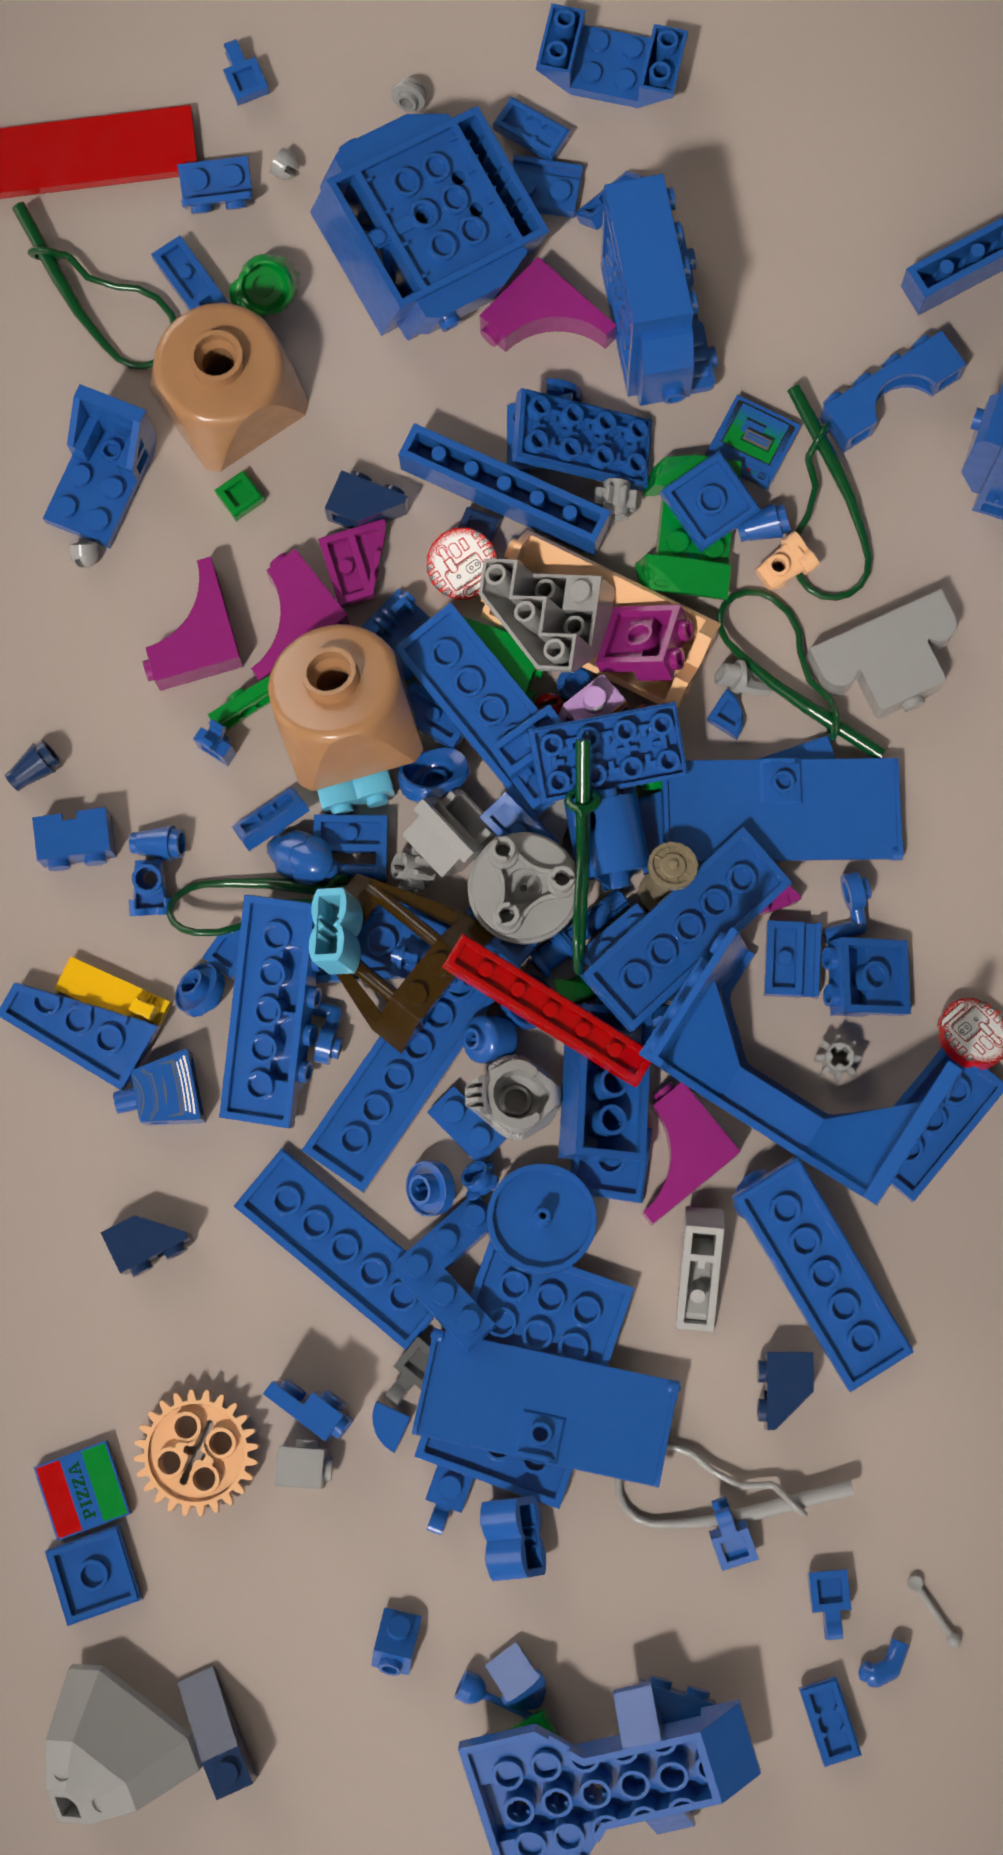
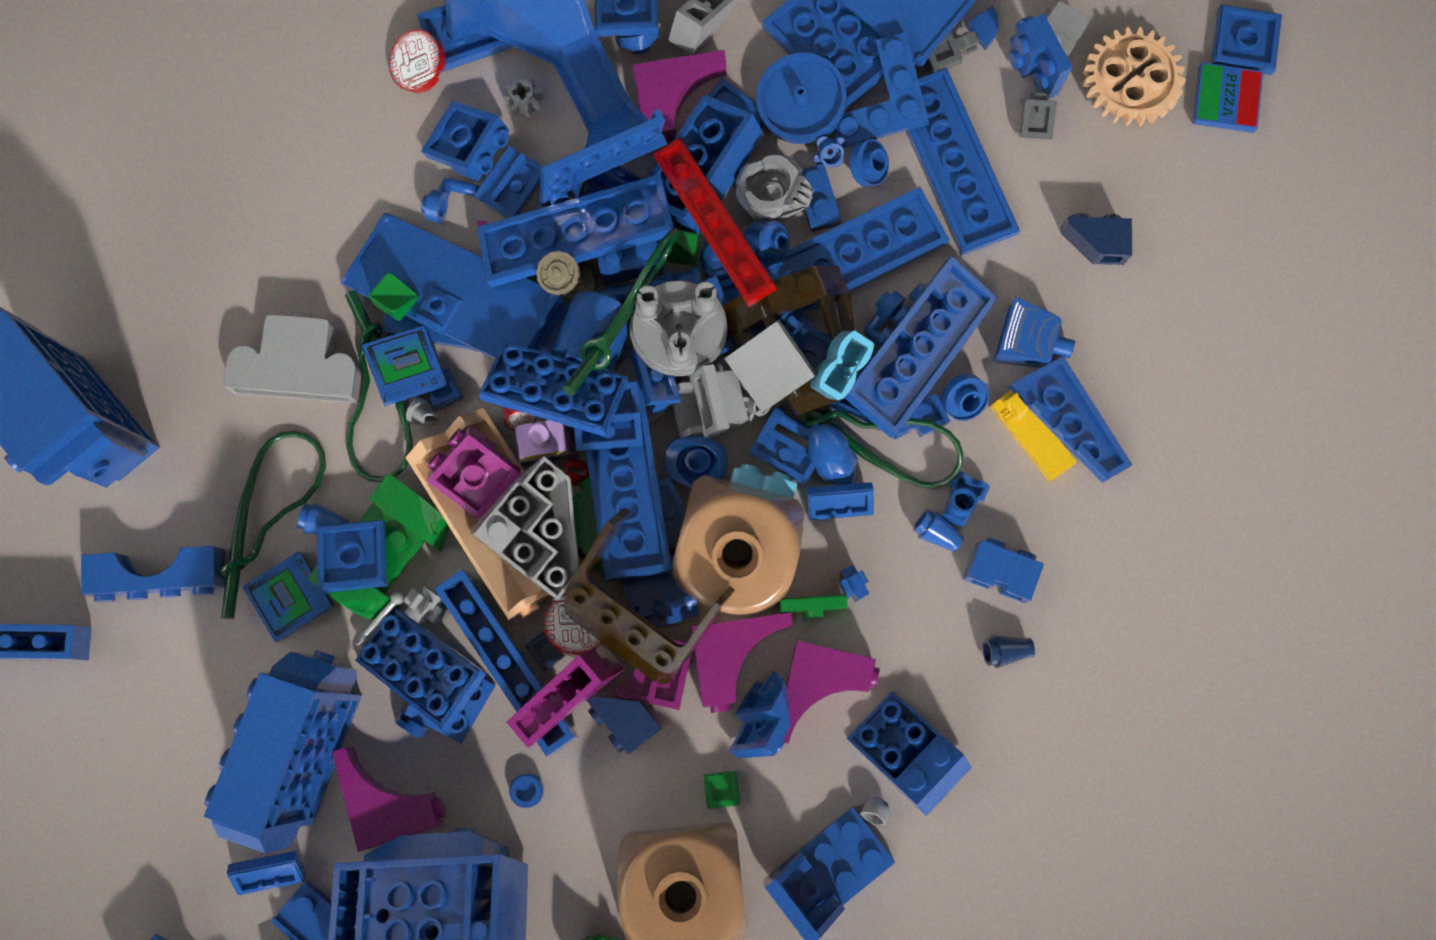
camera: 155 degrees left, 0 degrees up
(79, 619) = (909, 753): none -> blue slope
(229, 568) = (764, 719): none -> blue plate
(279, 1347) = (1037, 116): none -> dark grey bracket
(404, 570) = (622, 627): none -> dark brown windscreen
(406, 892) = (770, 366): none -> light grey tile
(420, 397) = (526, 790): none -> blue tile
(424, 488) = (565, 693): none -> magenta arch
(657, 440) = (361, 637): none -> light grey hinge
(778, 708) = (404, 365): none -> blue tile
(792, 556) = (317, 479): light nougat plate -> none
(829, 765) = (393, 296): none -> green slope

